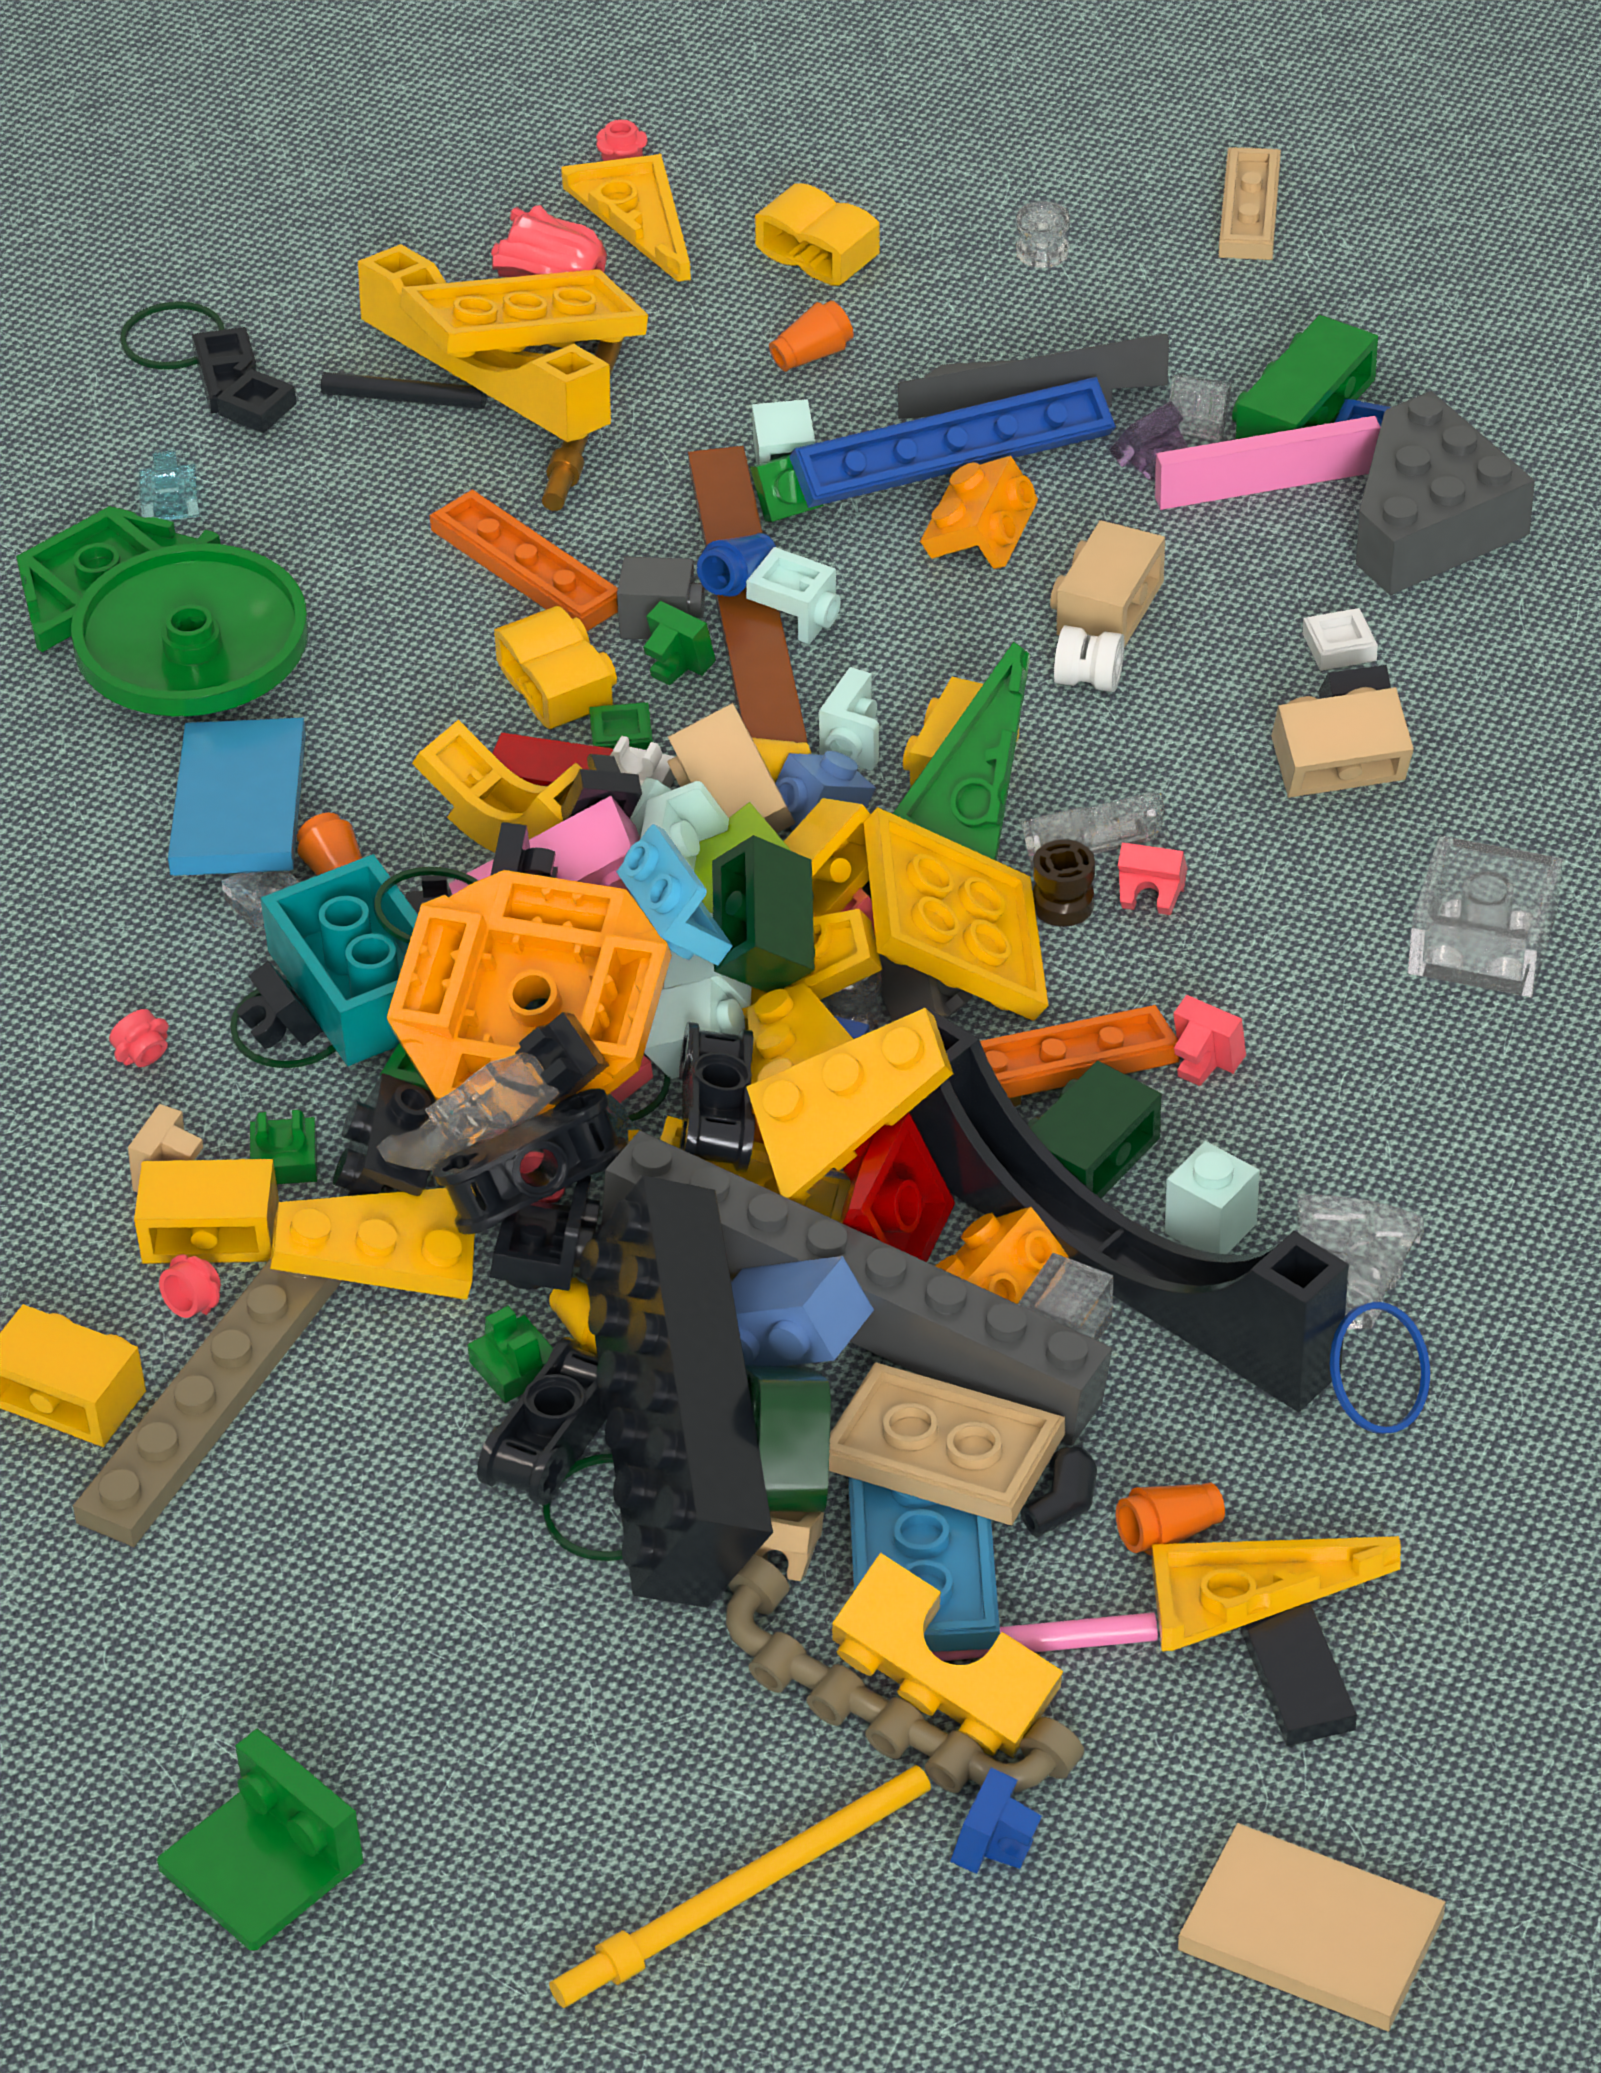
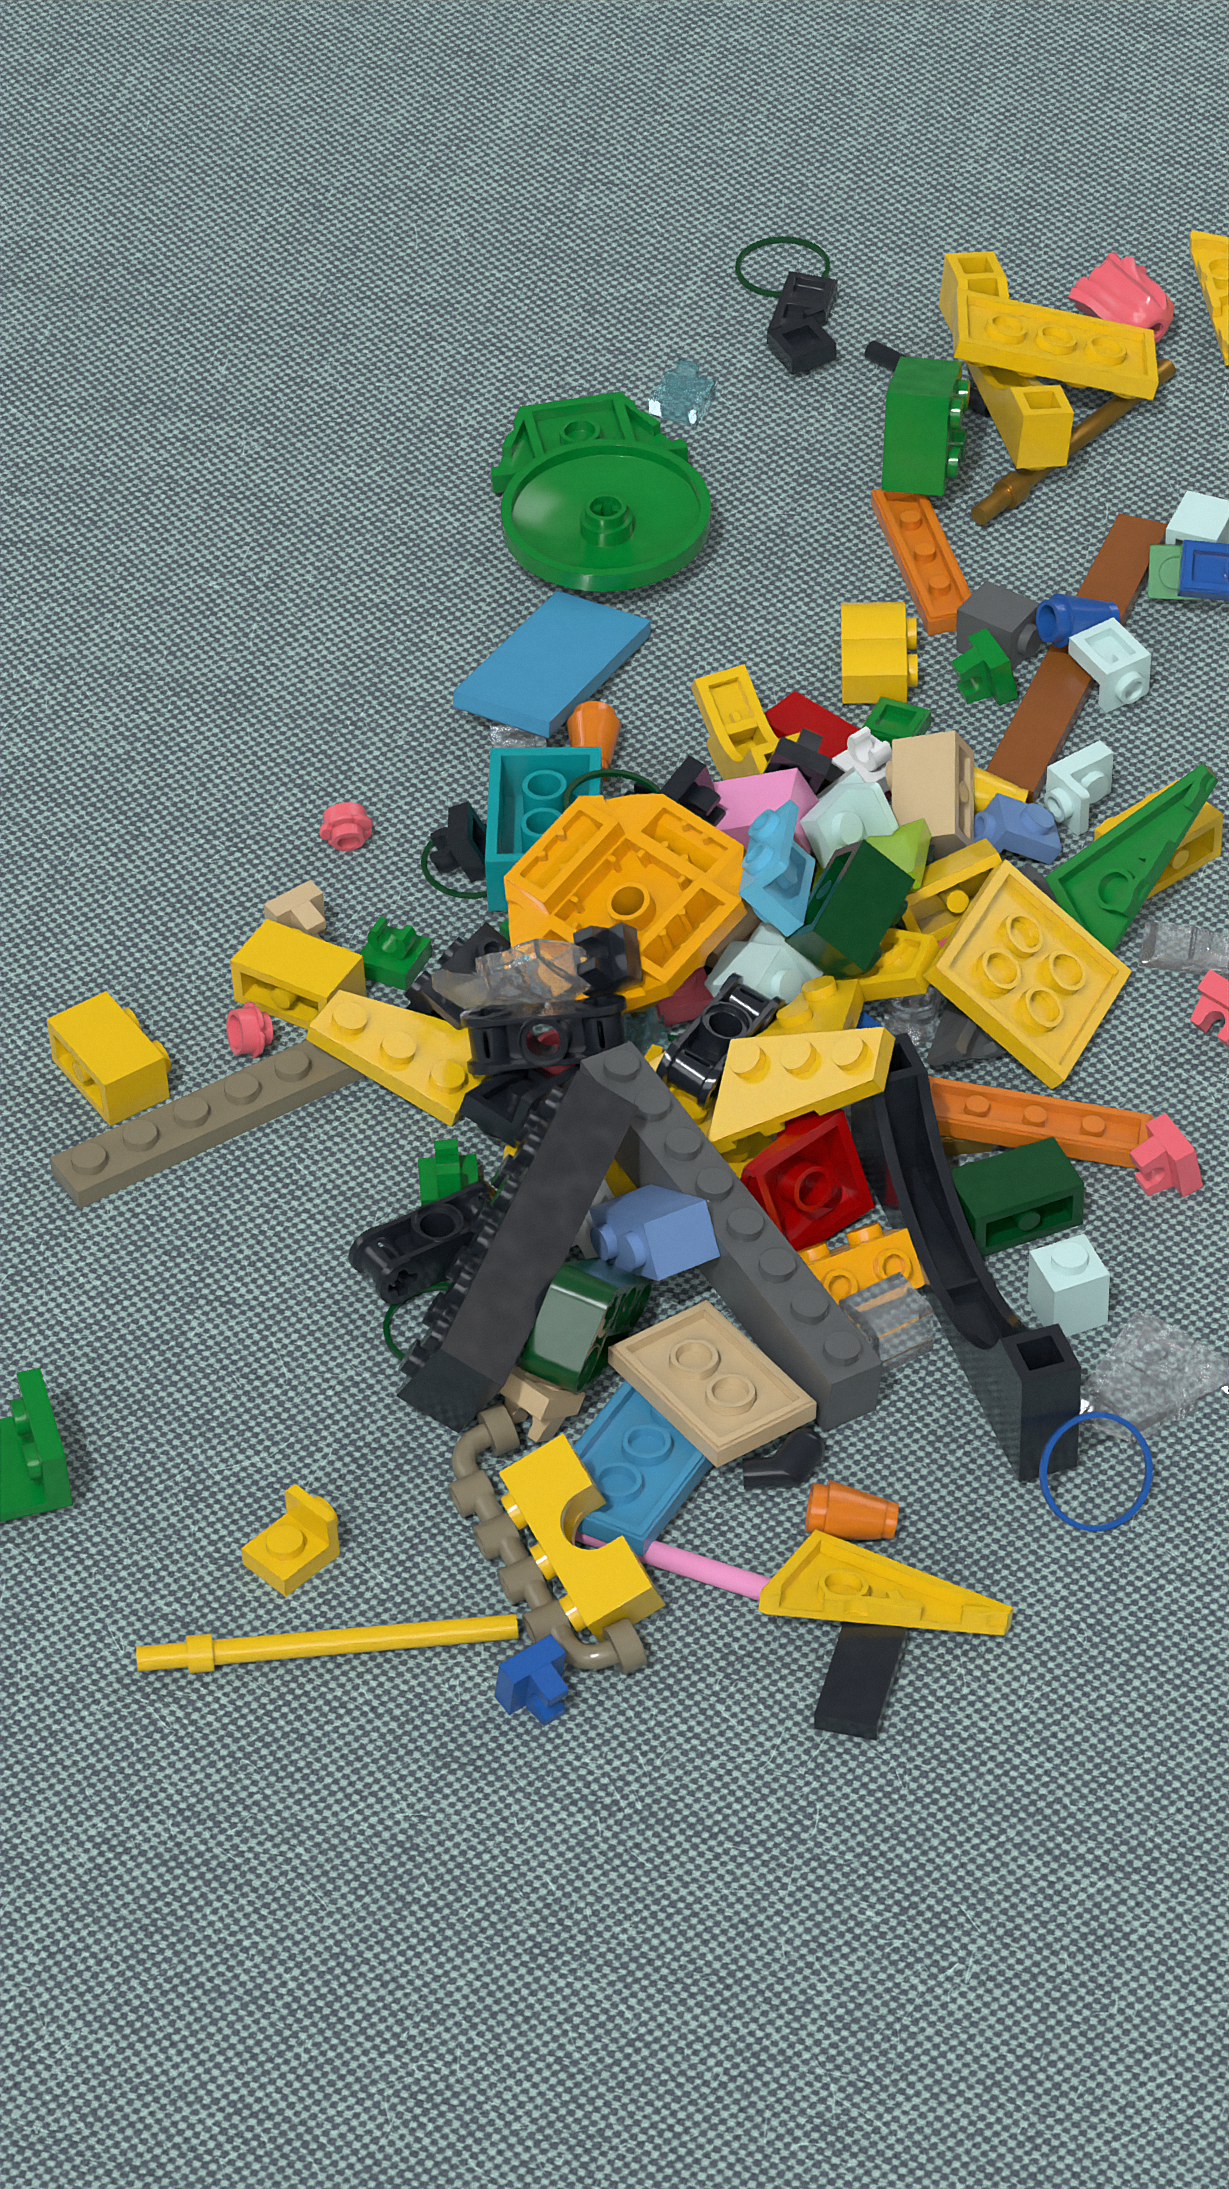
camera: 30 degrees right, 0 degrees up
(458, 431) = (924, 426): none -> green brick
(633, 1794) = (296, 1543): none -> yellow bracket
(1063, 882) = (1151, 986): dark brown wheel -> none
(1312, 1926) = (724, 1866): tan tile -> none

